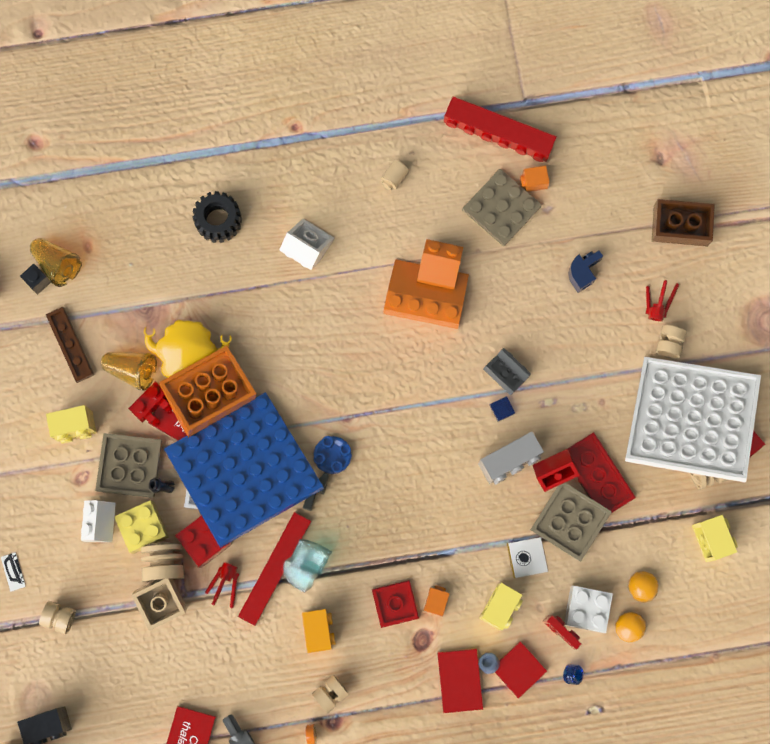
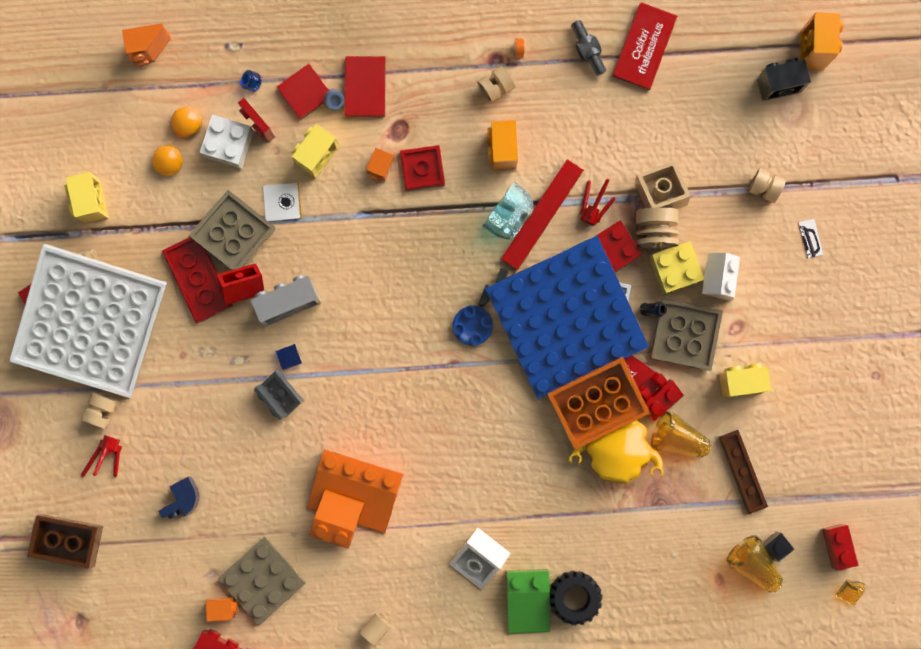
camera: 175 degrees left, 5 degrees up
(260, 212) = (528, 601): none -> bright green slope
(682, 699) = (145, 43): none -> orange slope

